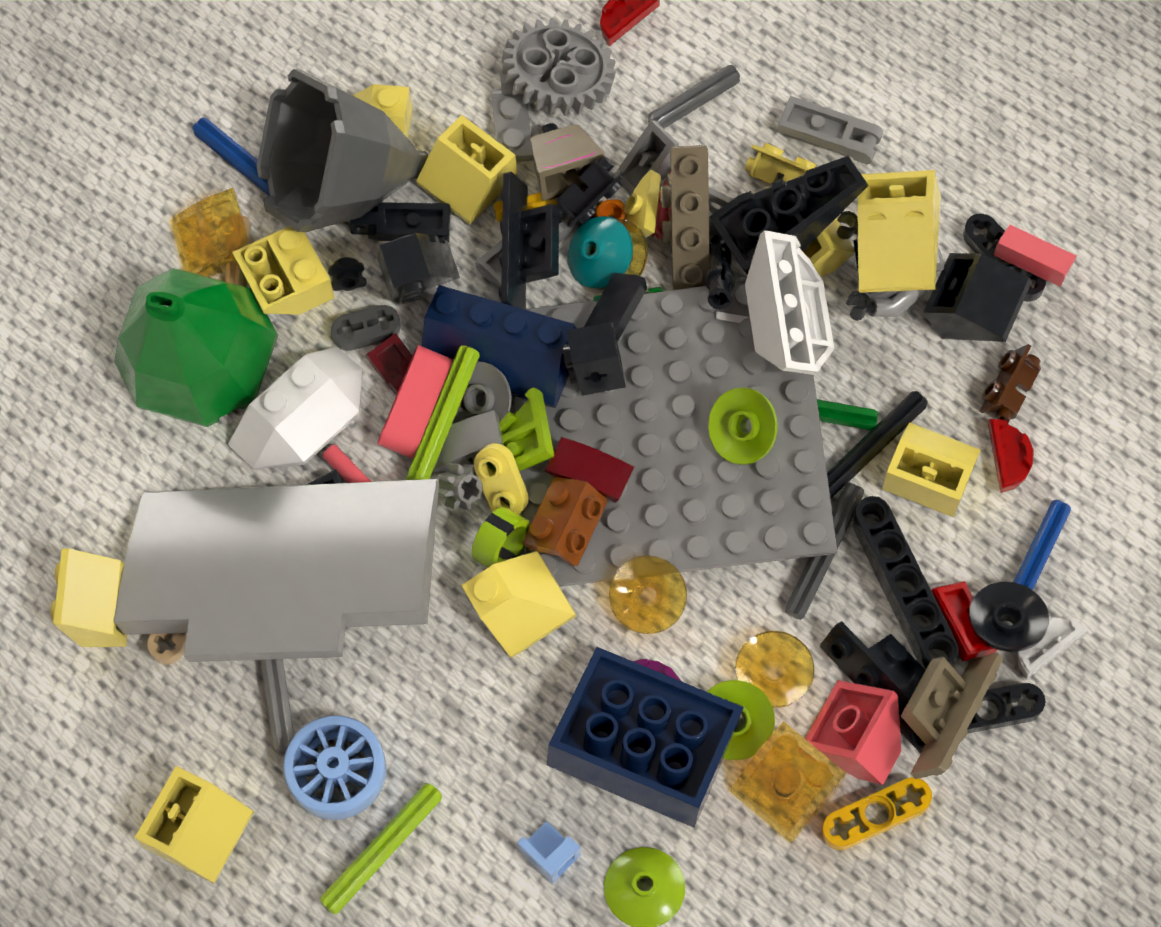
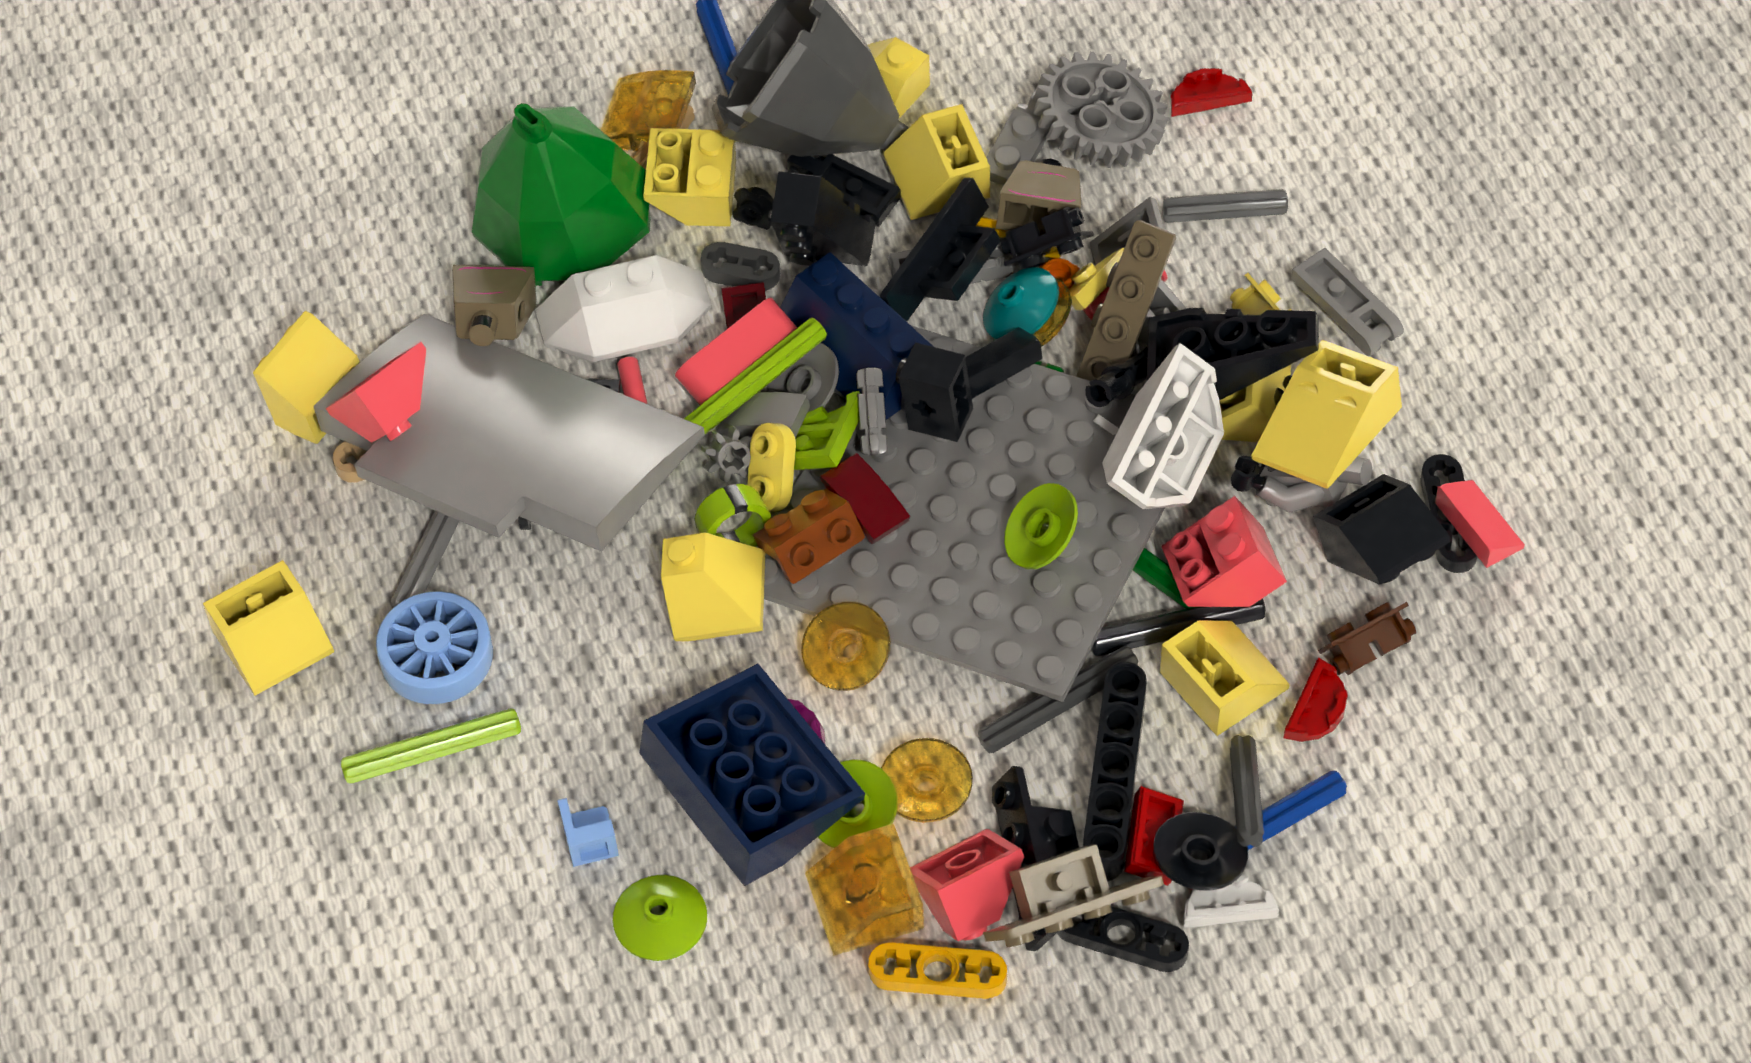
camera: 30 degrees right, 10 degrees down
(173, 586) = (385, 398): none -> coral slope
(194, 459) = (492, 301): none -> dark tan torso
(553, 398) = (871, 411): none -> light grey axle
(879, 380) = (1224, 559): none -> coral slope
(1008, 550) = (1246, 791): none -> dark grey axle

